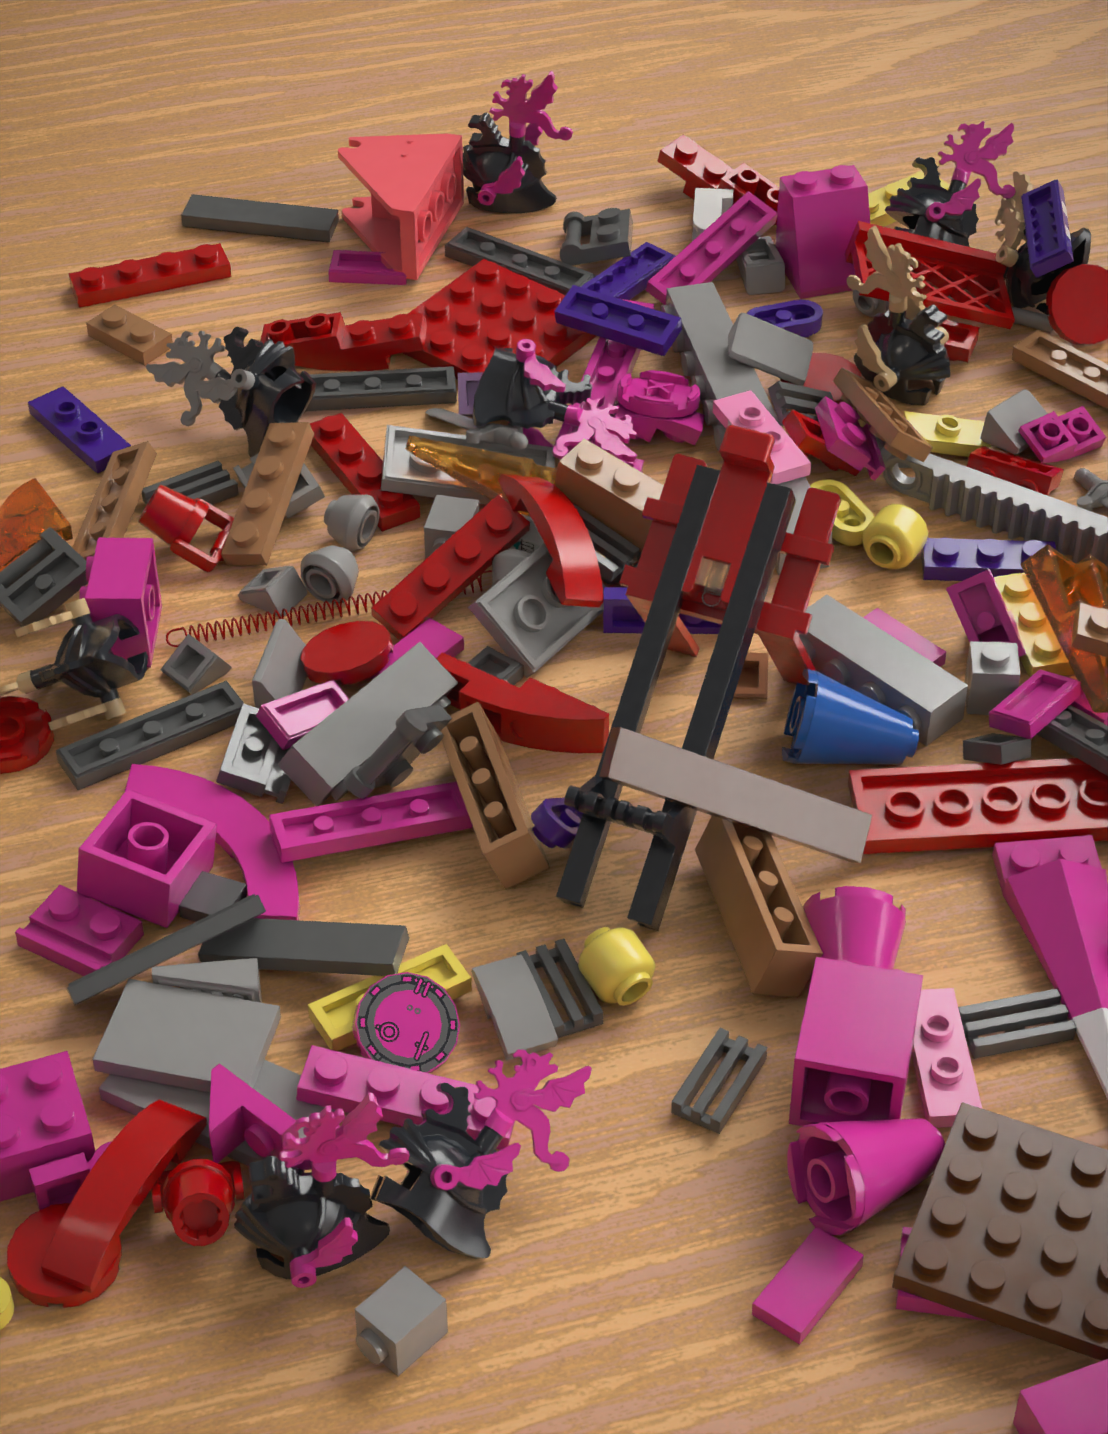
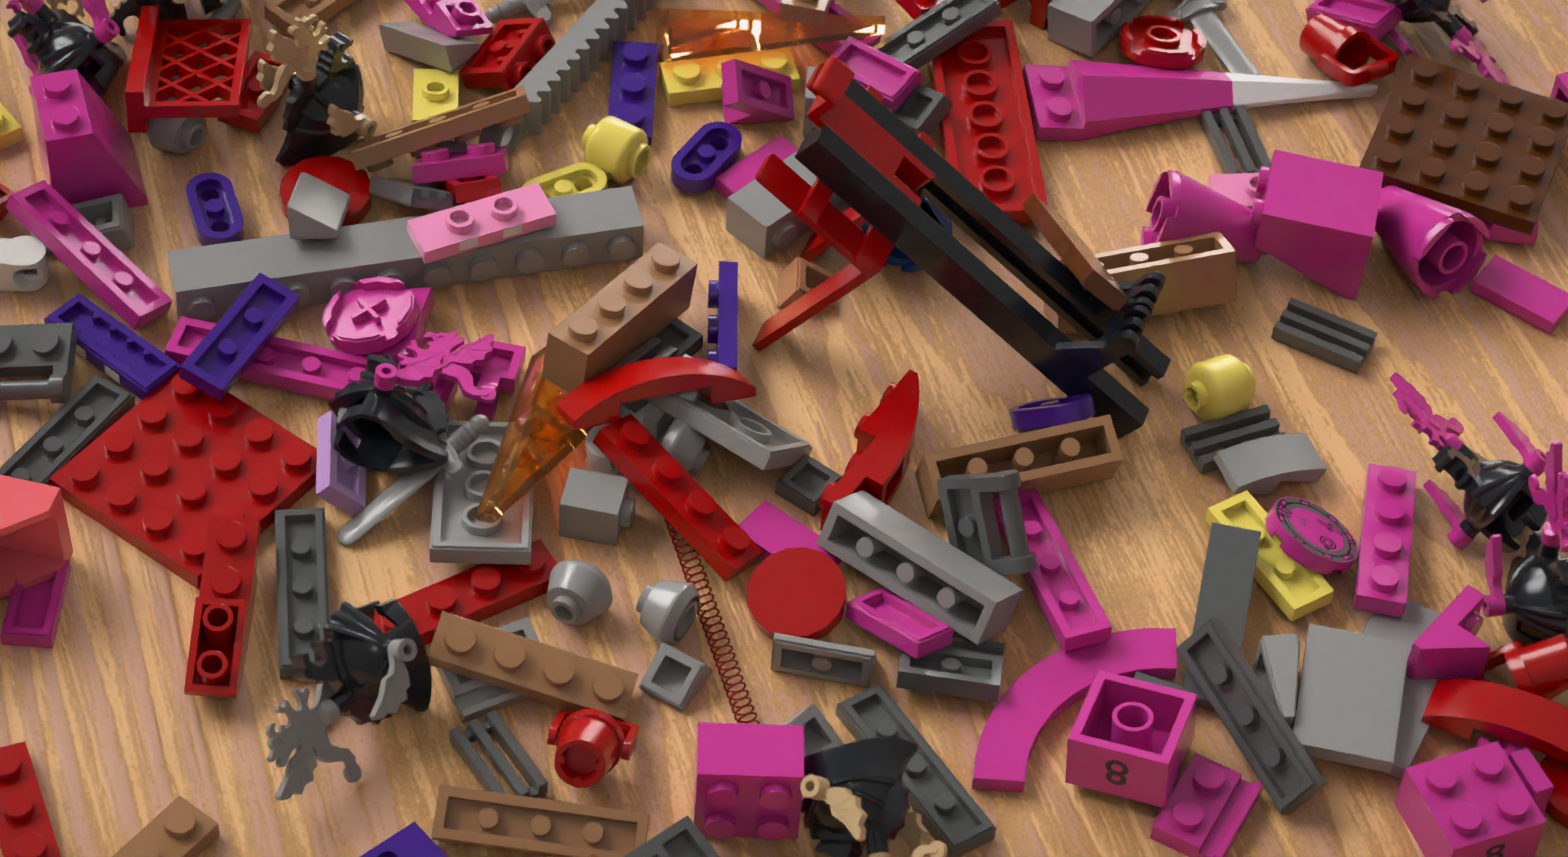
camera: 95 degrees left, 5 degrees up
(905, 601) = (700, 161): none -> dark purple plate

